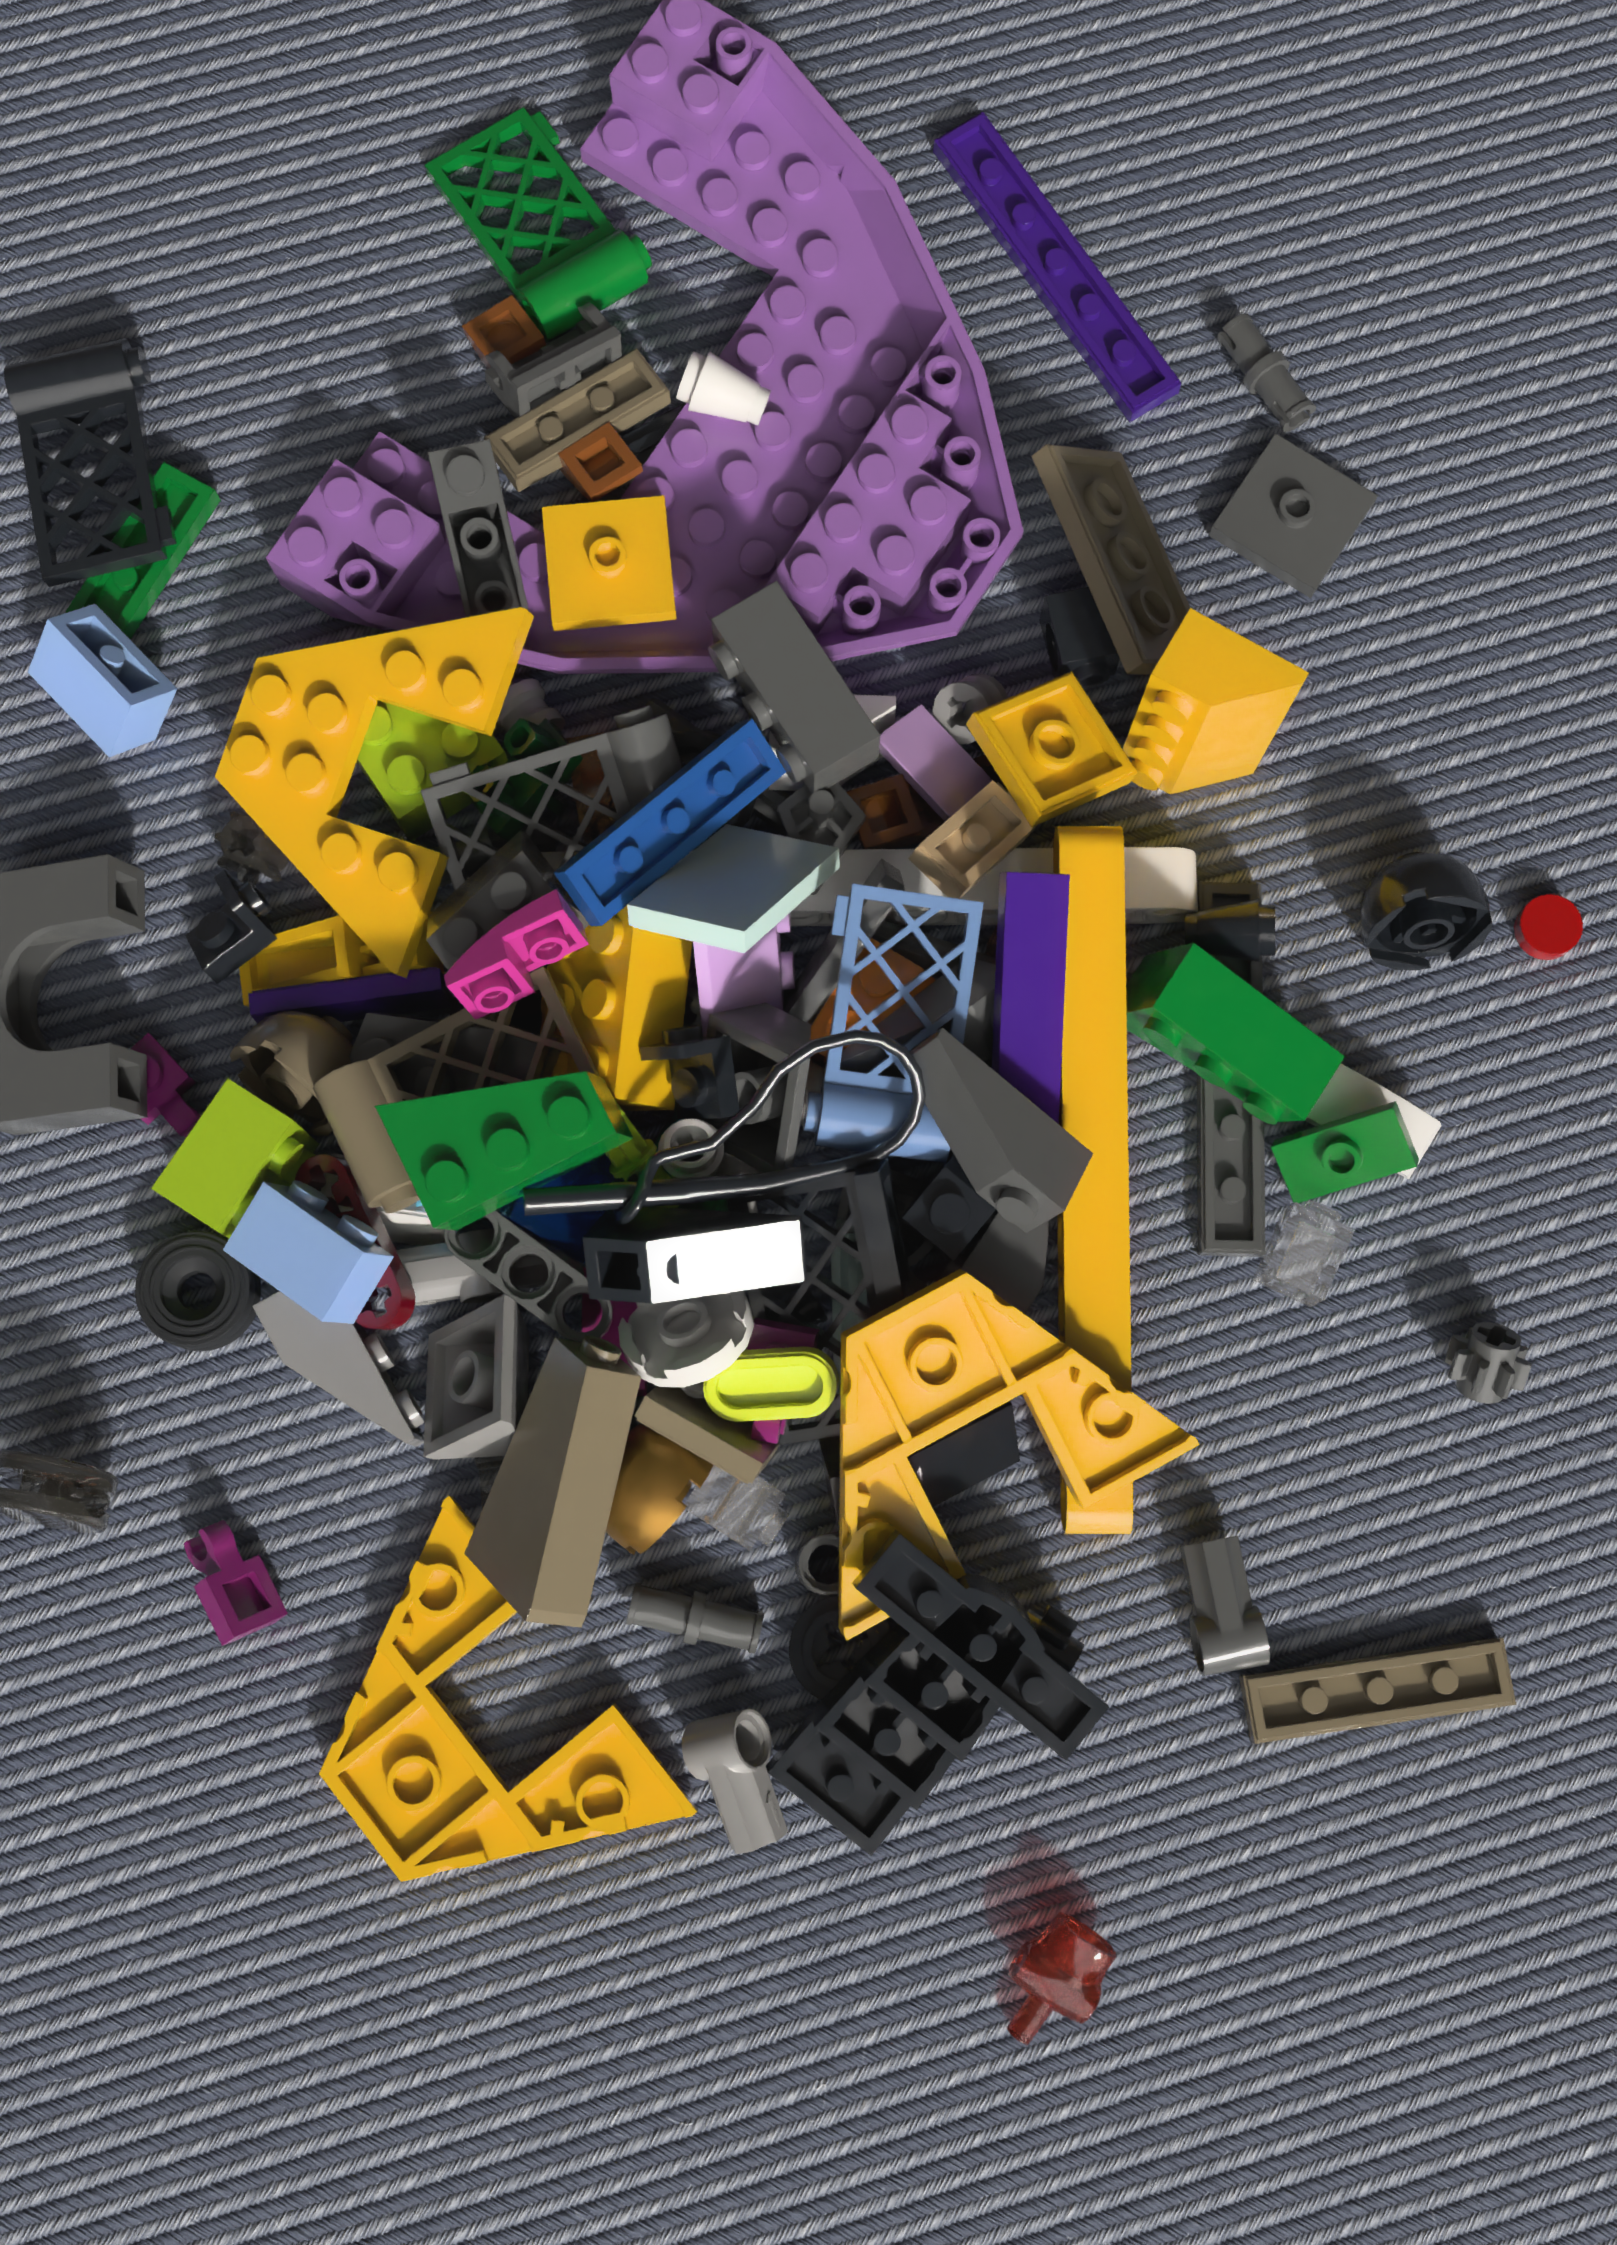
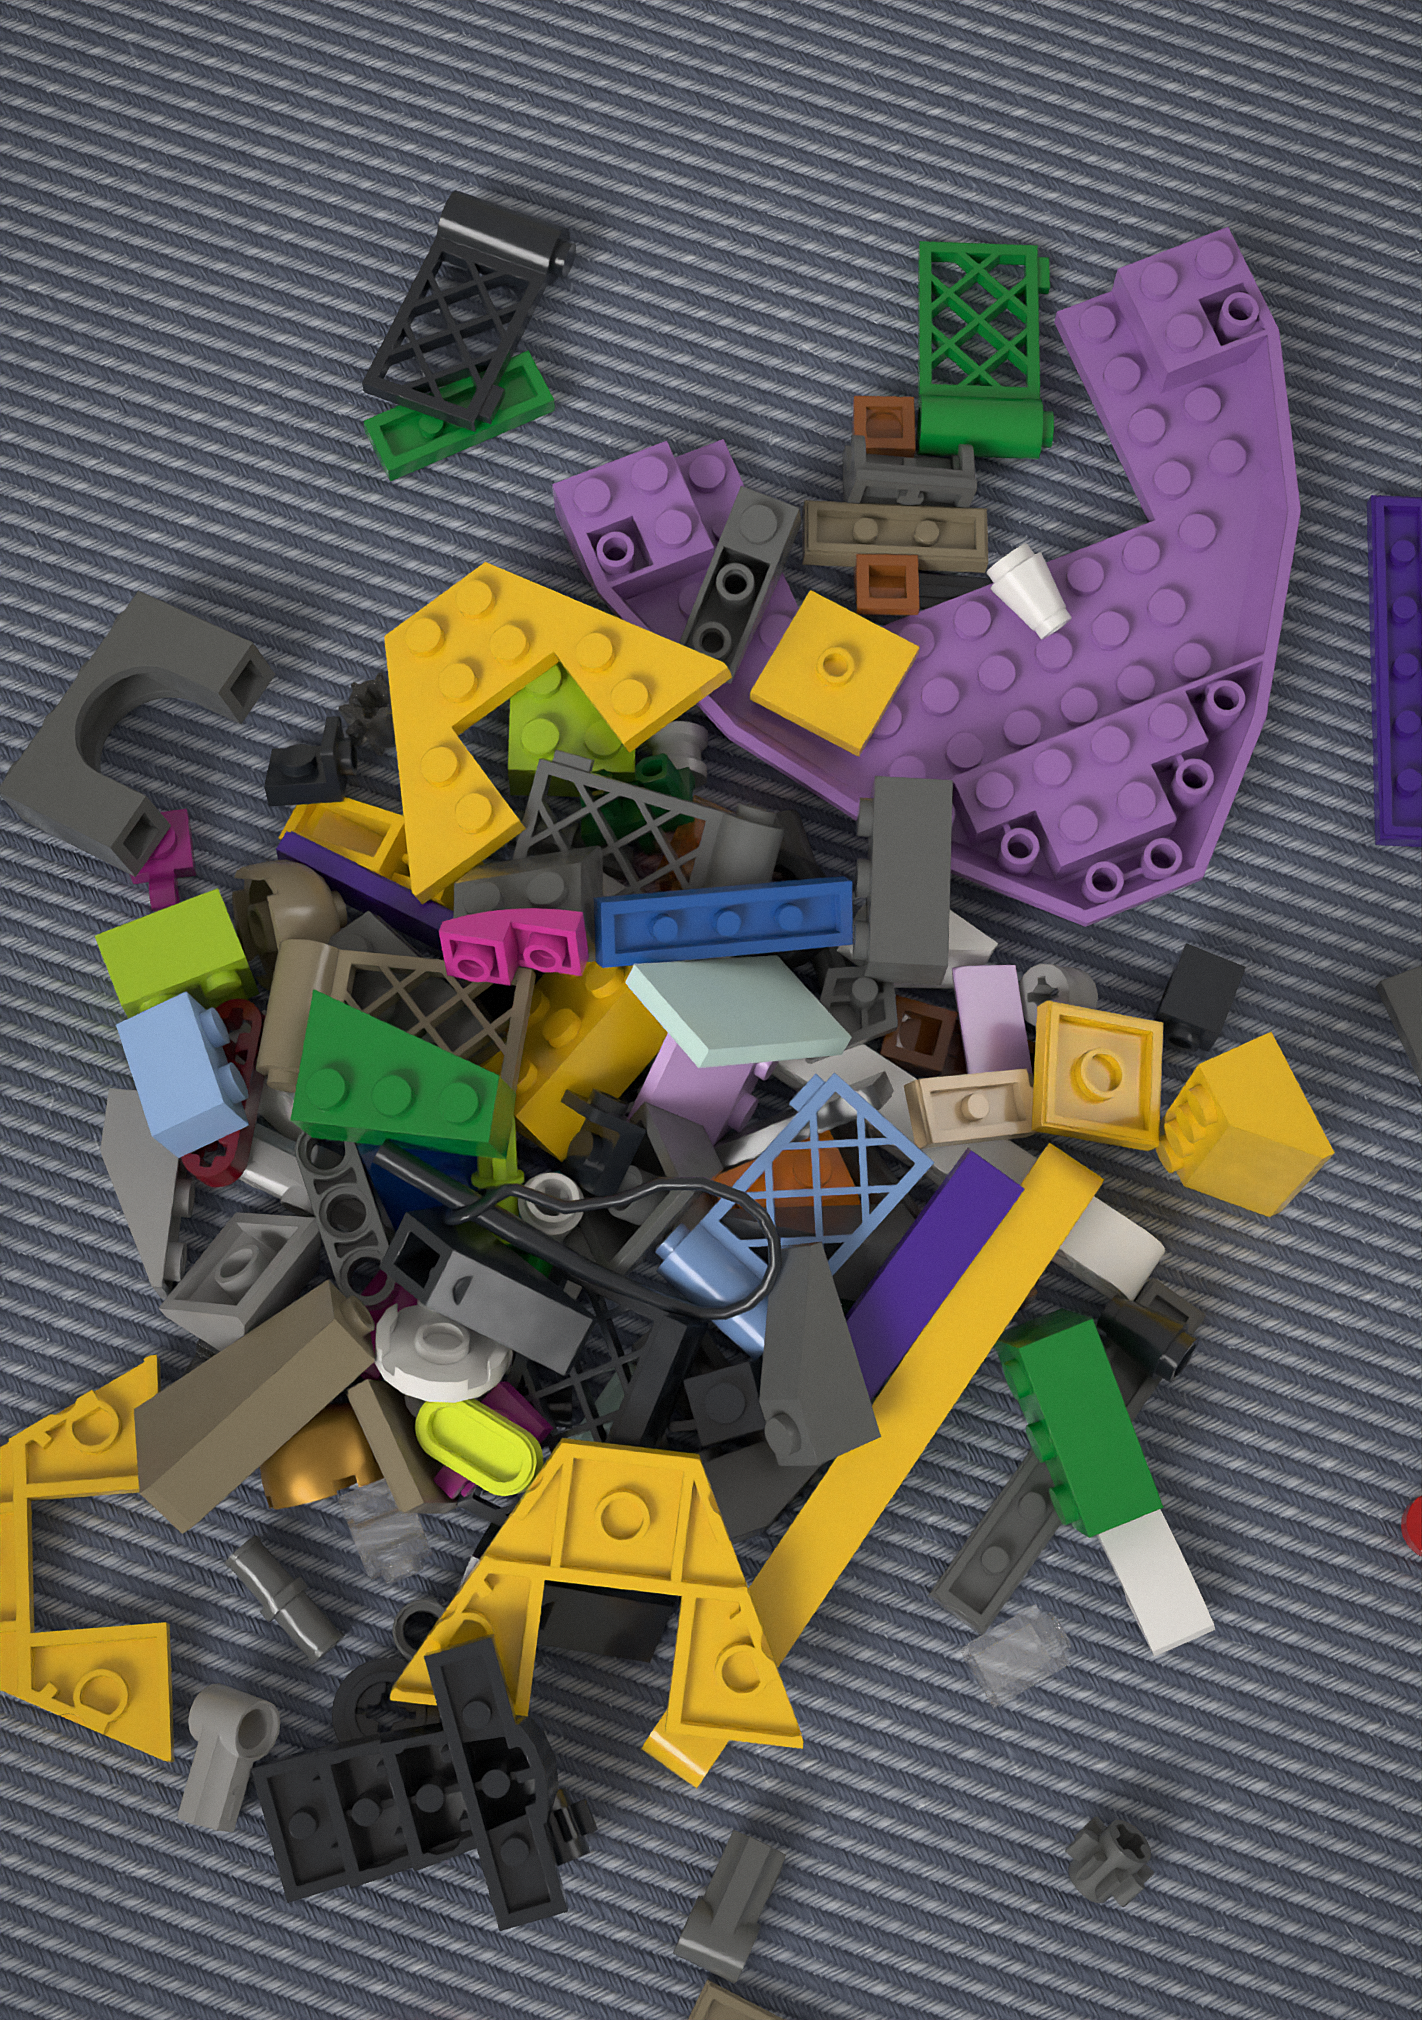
camera: 30 degrees right, 5 degrees down
(101, 680) = (351, 496): light blue brick -> none
(161, 1284) = (46, 1025): black tyre -> none
(1115, 550) = (1278, 944): dark tan tile -> none
(1345, 1152) = (1111, 1593): green plate -> none
(1422, 910) = (1327, 1431): black cylinder -> none

